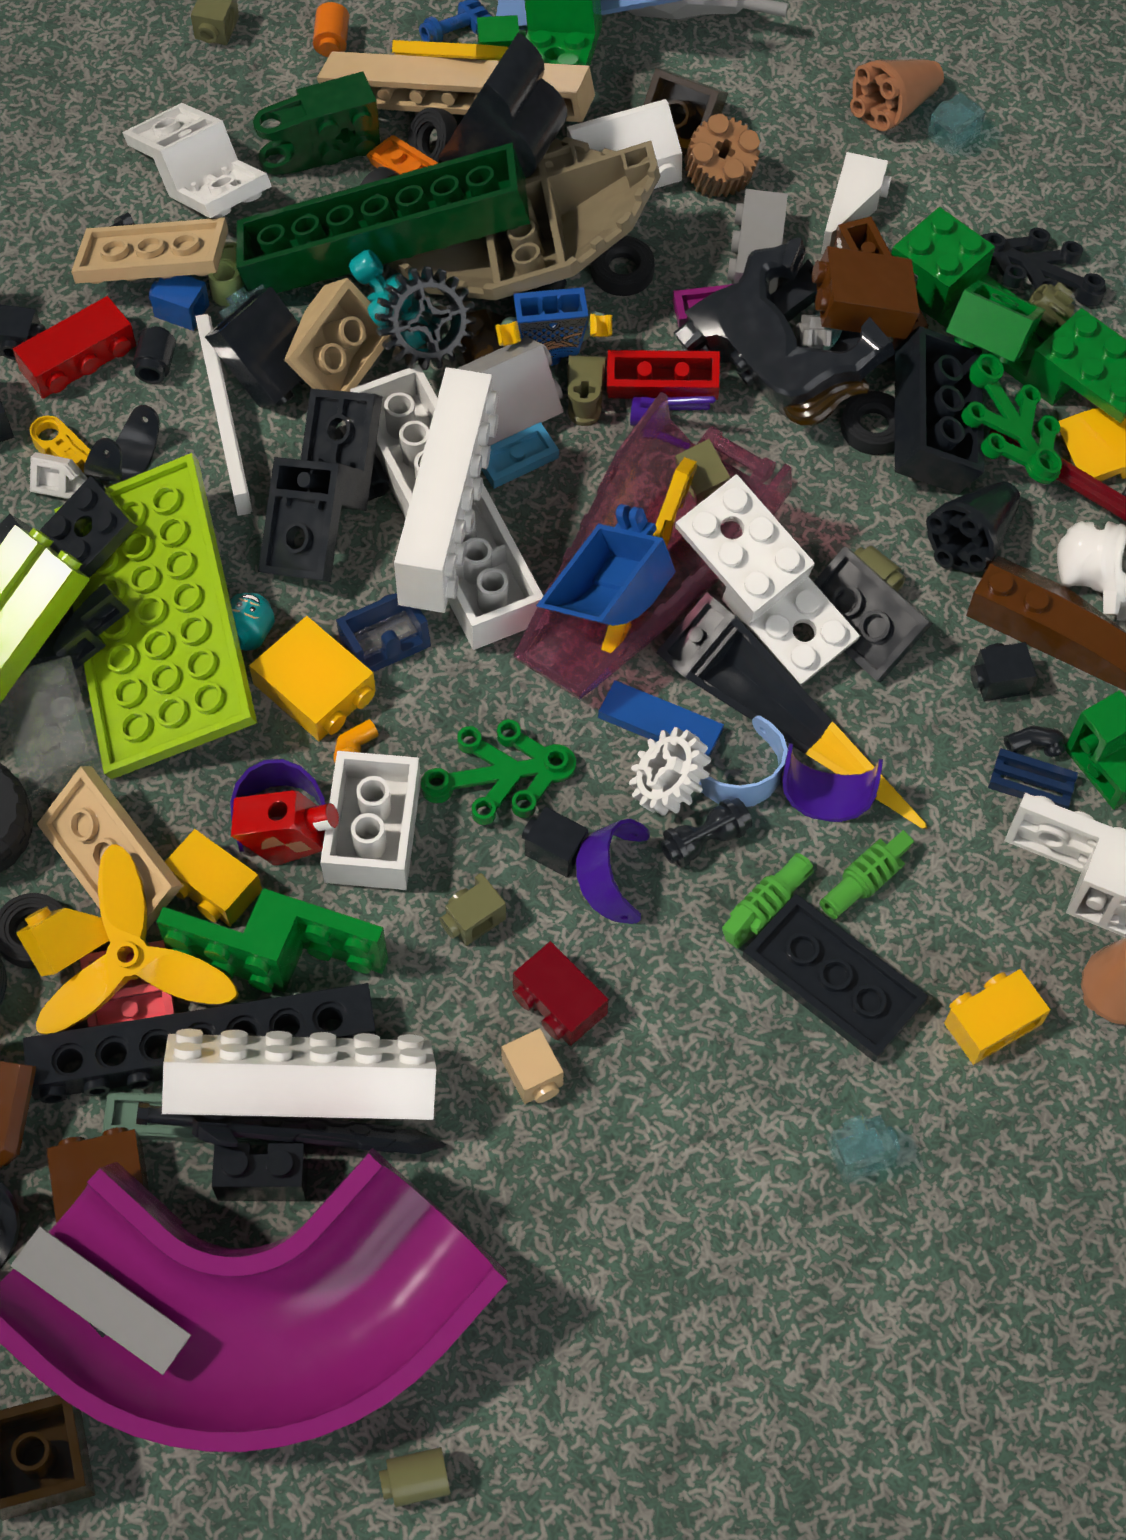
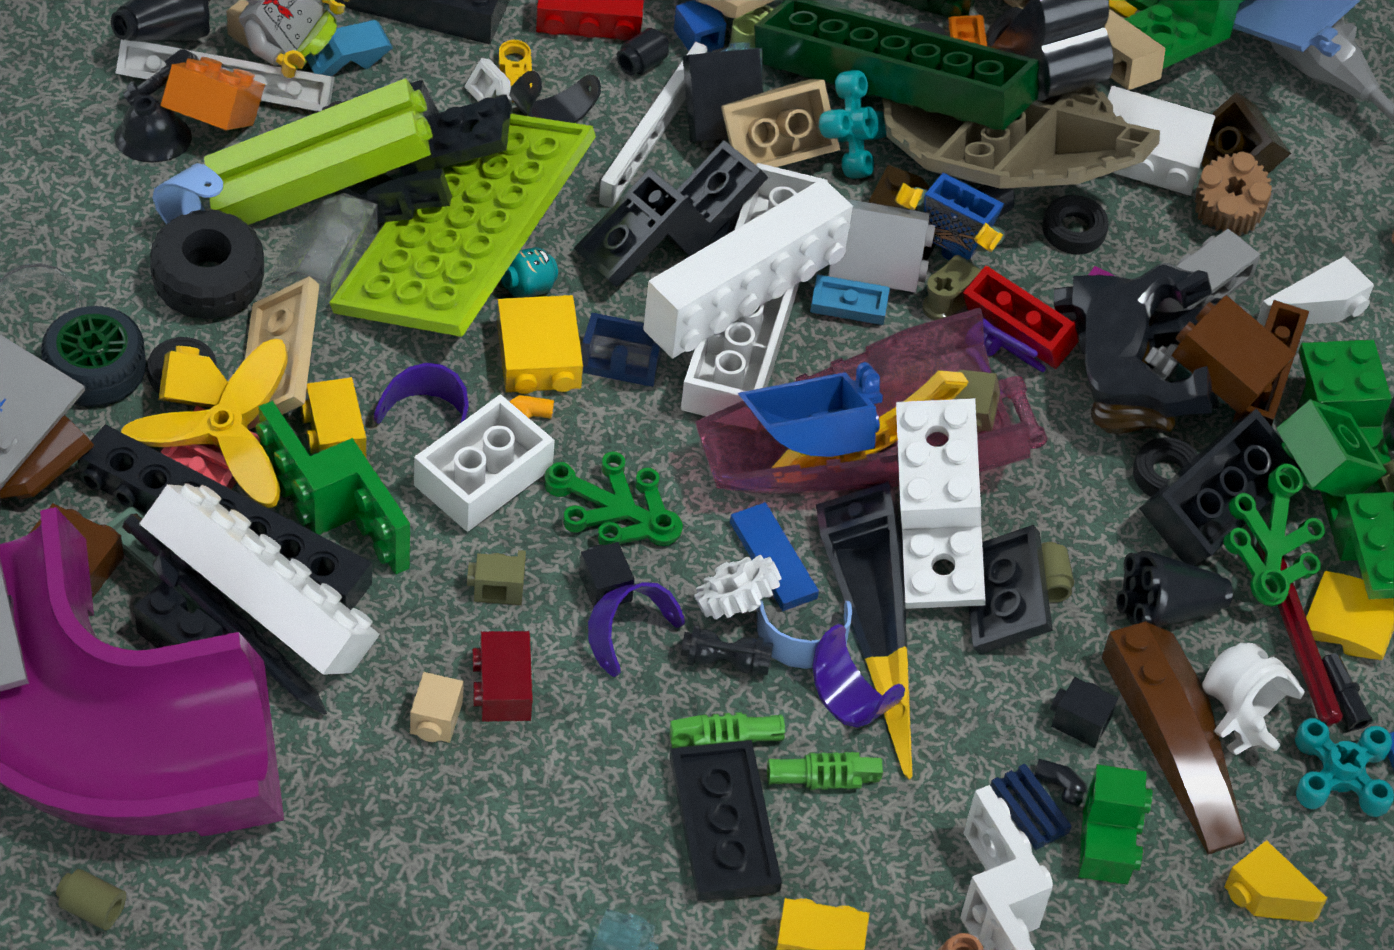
camera: 35 degrees right, 10 degrees down
(282, 825) = (410, 413): red torso -> none
(420, 302) = (826, 137): black gear -> none

